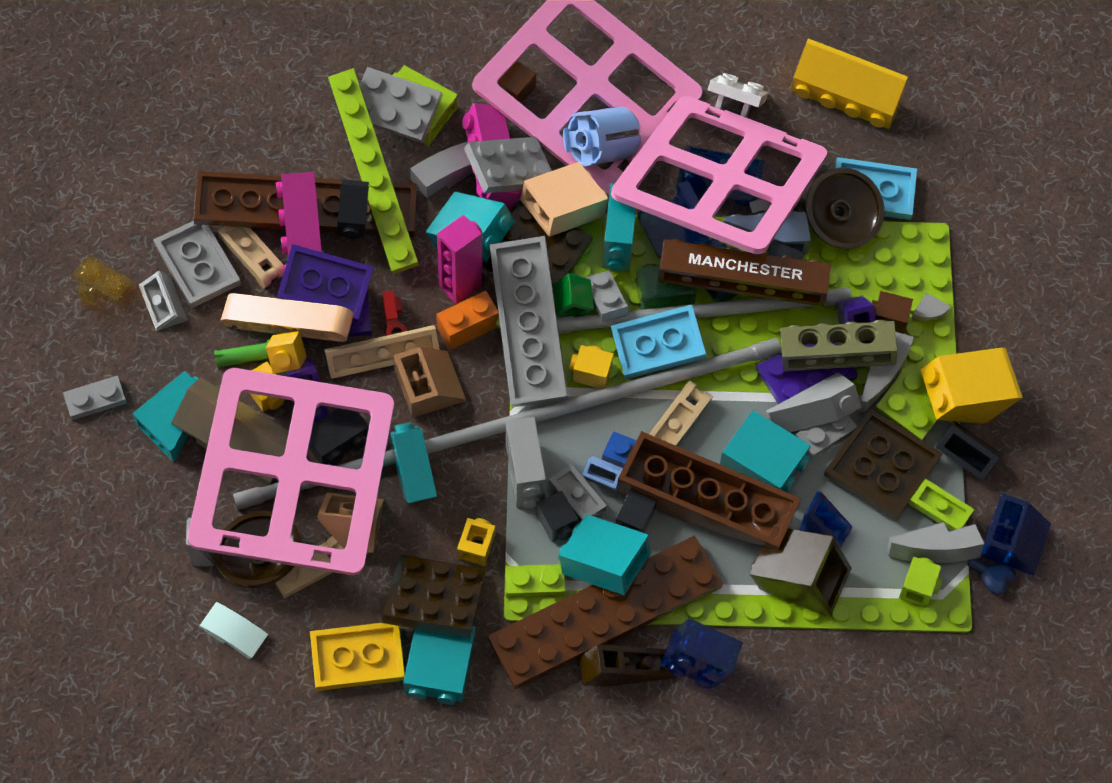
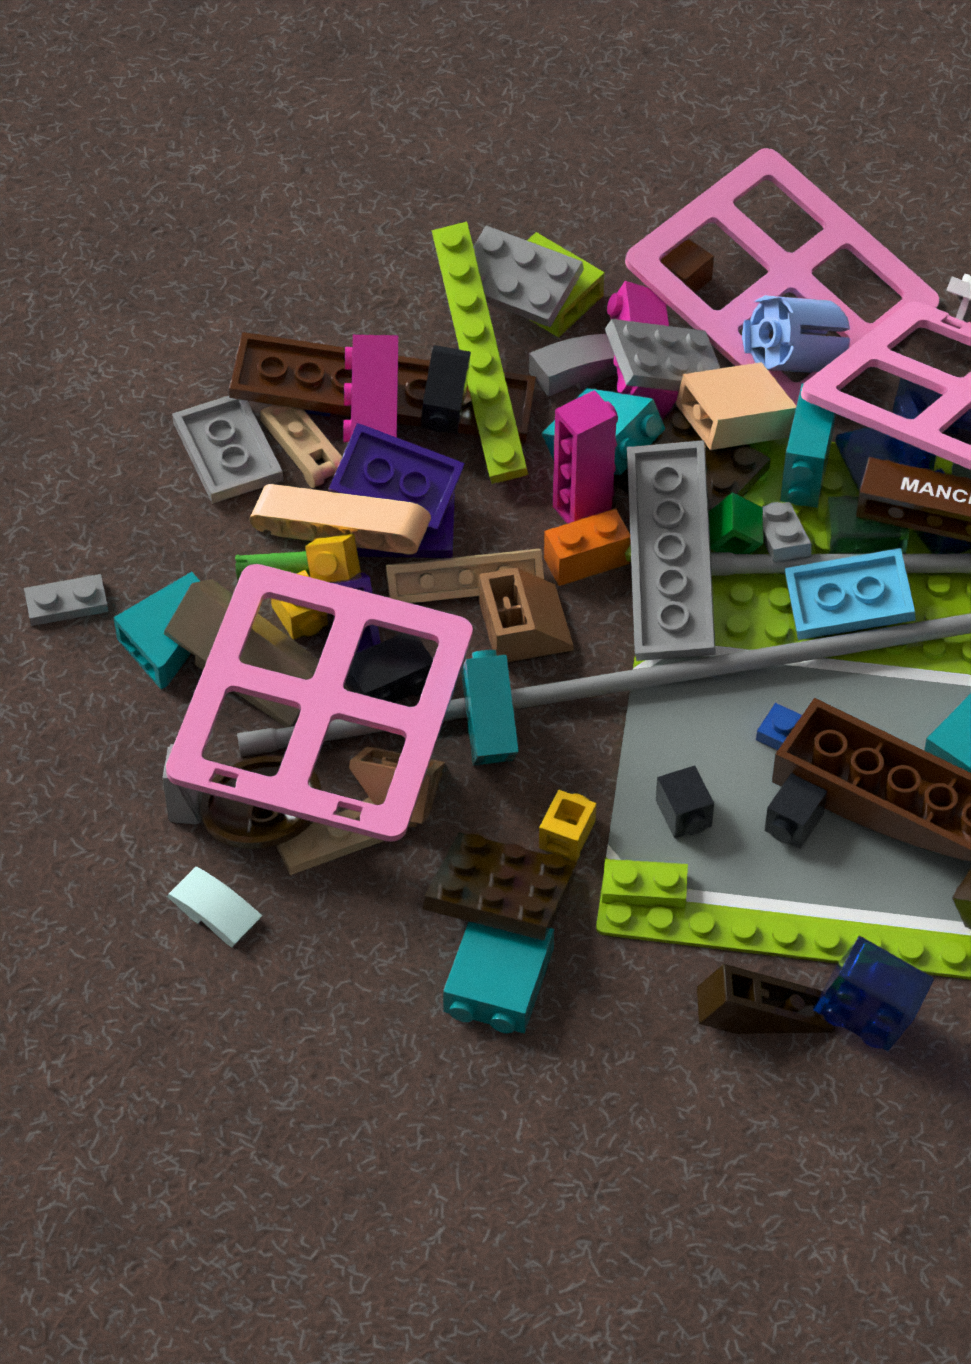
camera: 10 degrees right, 10 degrees down
(100, 279) = (90, 455): clear yellow plate -> none
(162, 301) = (174, 491): light grey slope -> none
(356, 656) = (382, 955): yellow plate -> none
(392, 306) = (484, 523): red plate -> none
(525, 462) = (647, 723): light grey brick -> none
(578, 492) = (720, 775): light grey plate -> none
(591, 366) = (753, 617): yellow brick -> none
(594, 462) = (756, 745): light blue piece -> none
(602, 616) = (740, 929): reddish brown plate -> none
(604, 554) = (747, 852): teal brick -> none
(681, 414) = (874, 689): tan plate -> none

